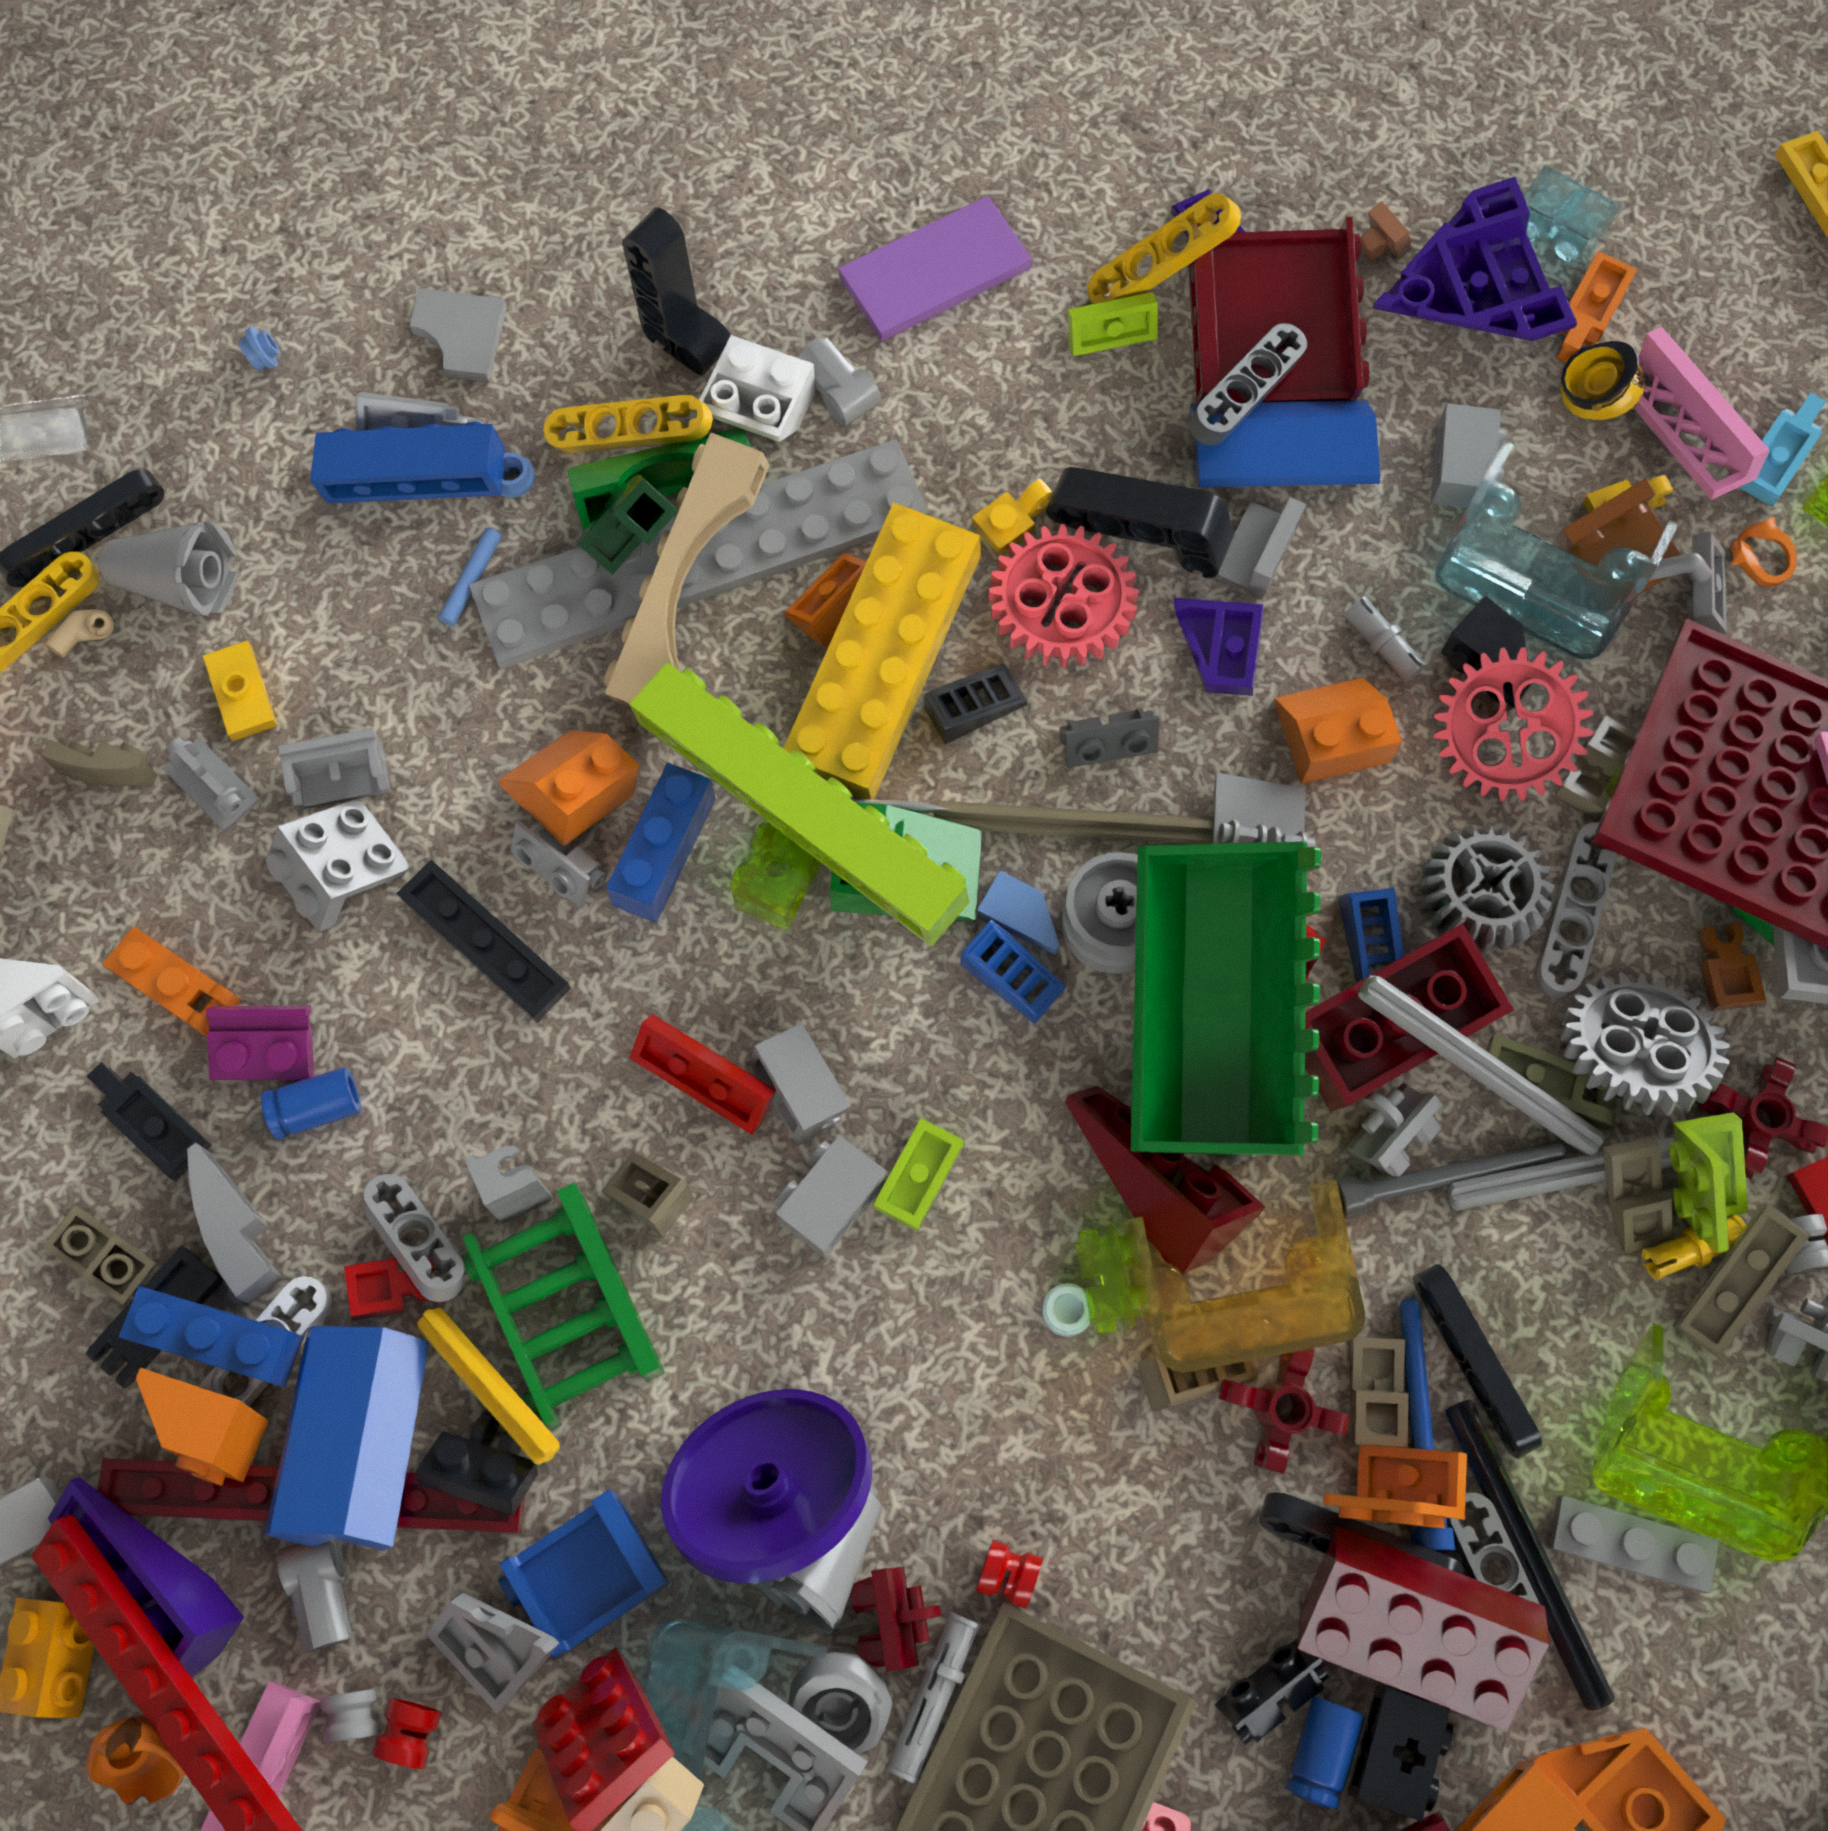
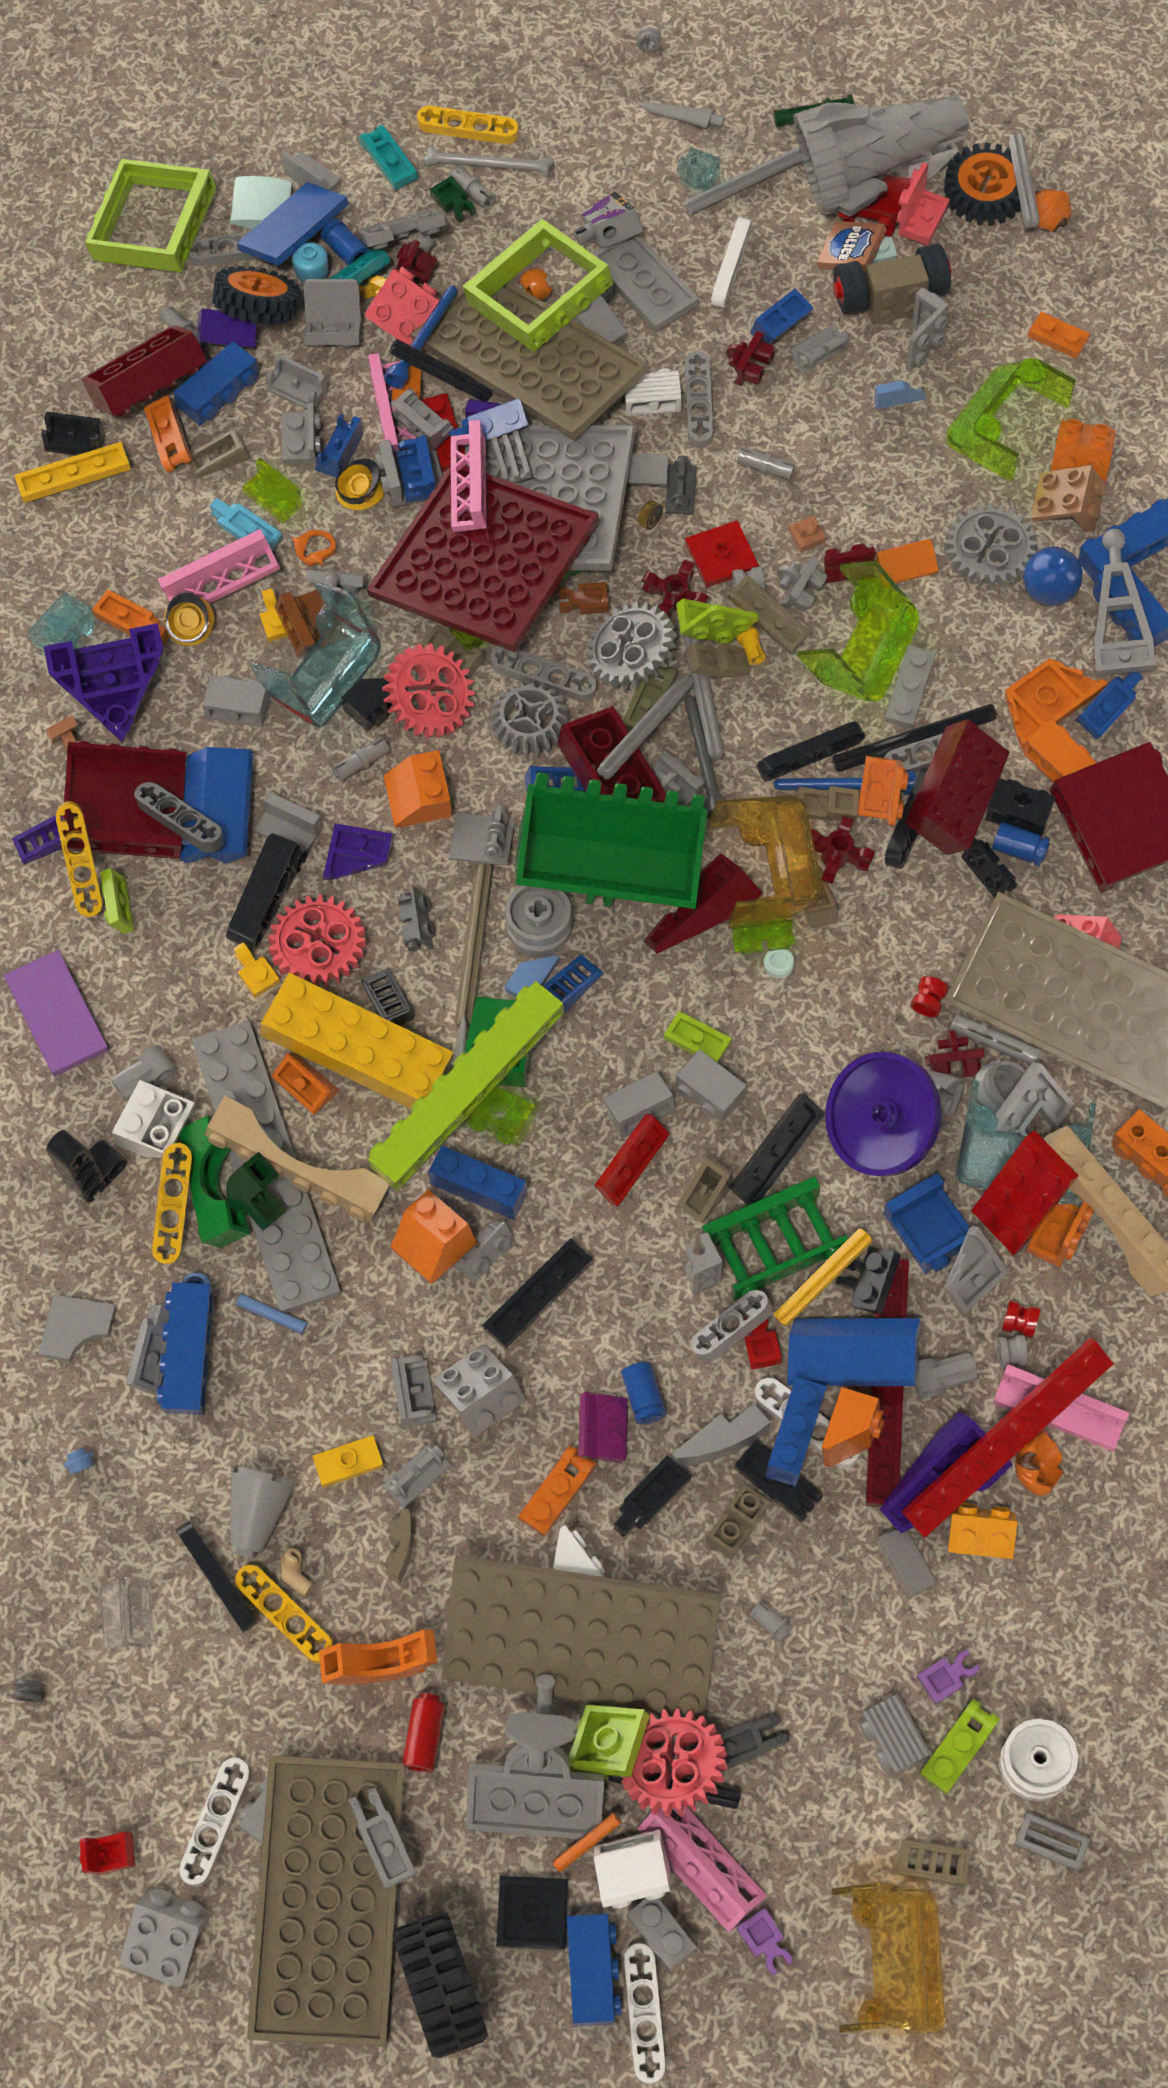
camera: 85 degrees left, 5 degrees down
(719, 1308) = (777, 1150): none -> black plate

